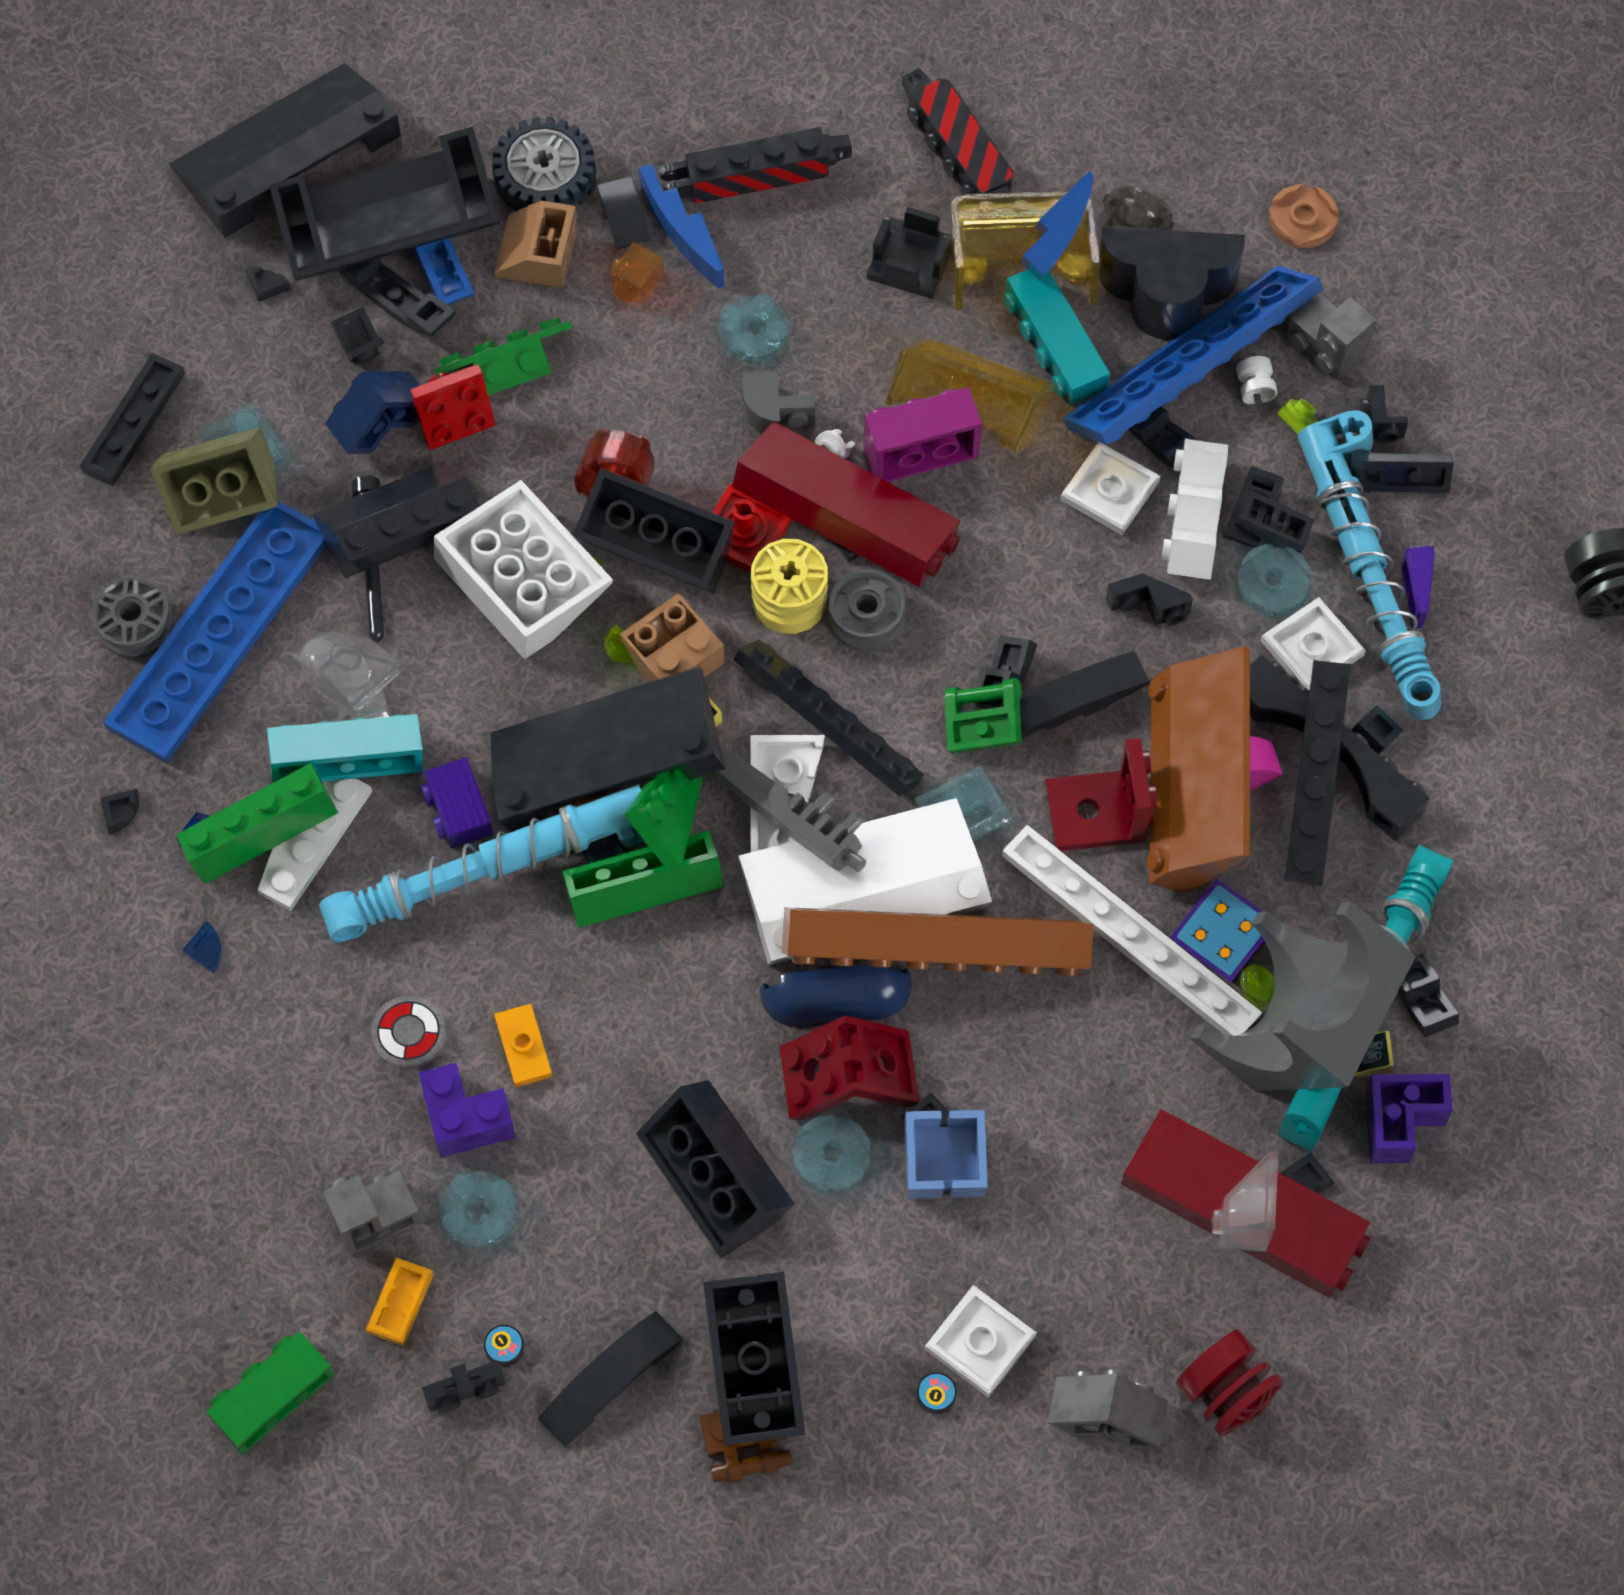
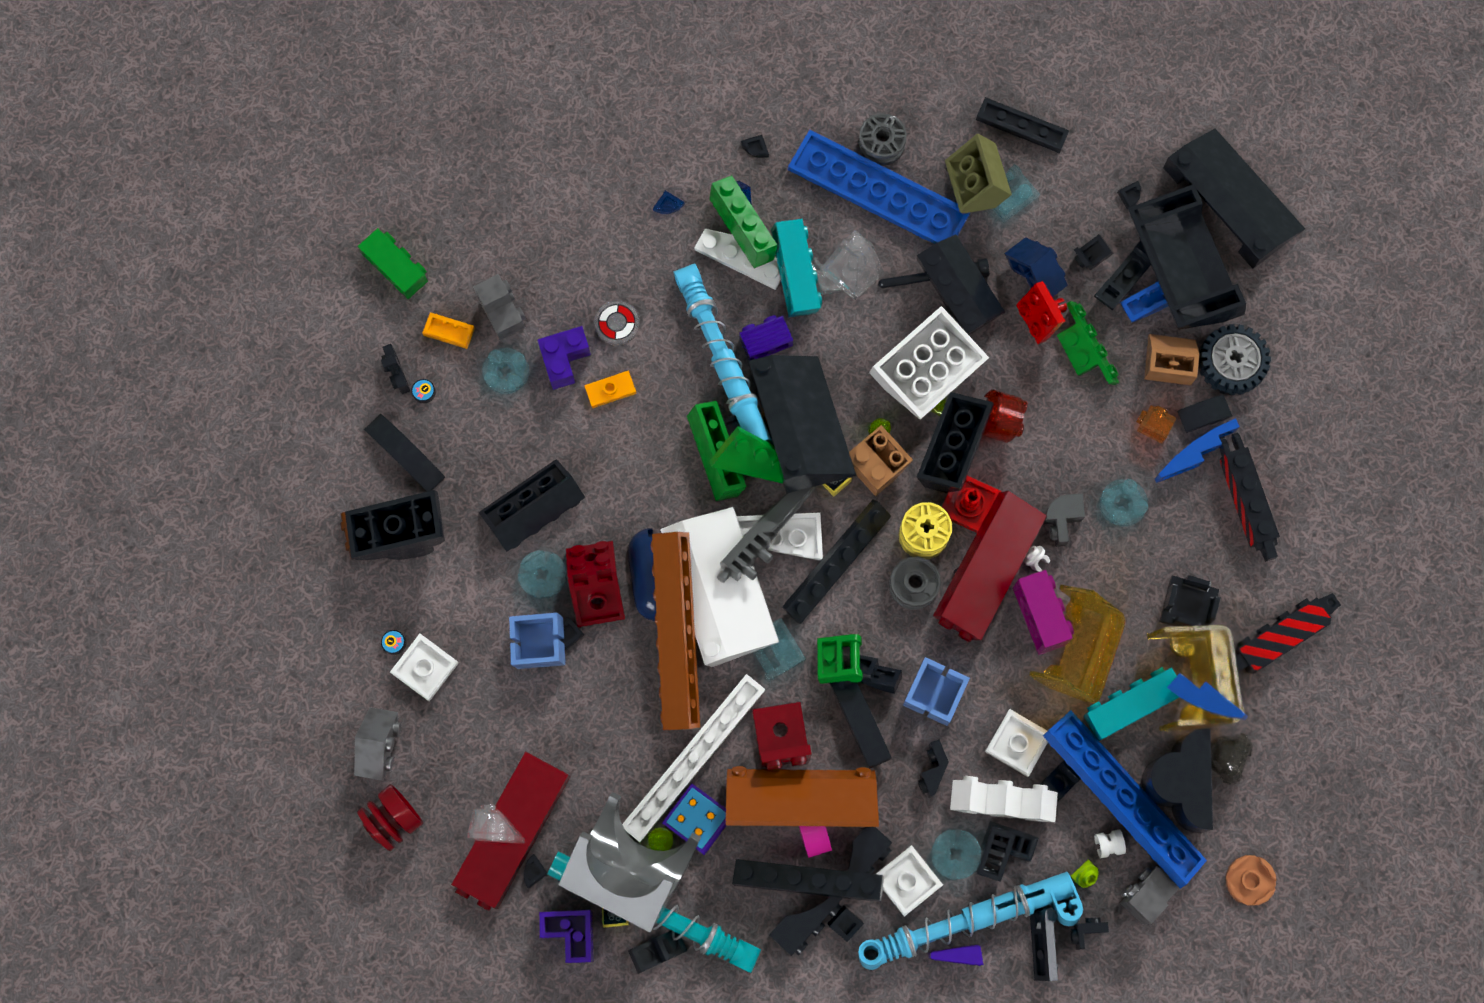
camera: 90 degrees right, 10 degrees up
(1039, 586) = (936, 692): none -> medium blue piece

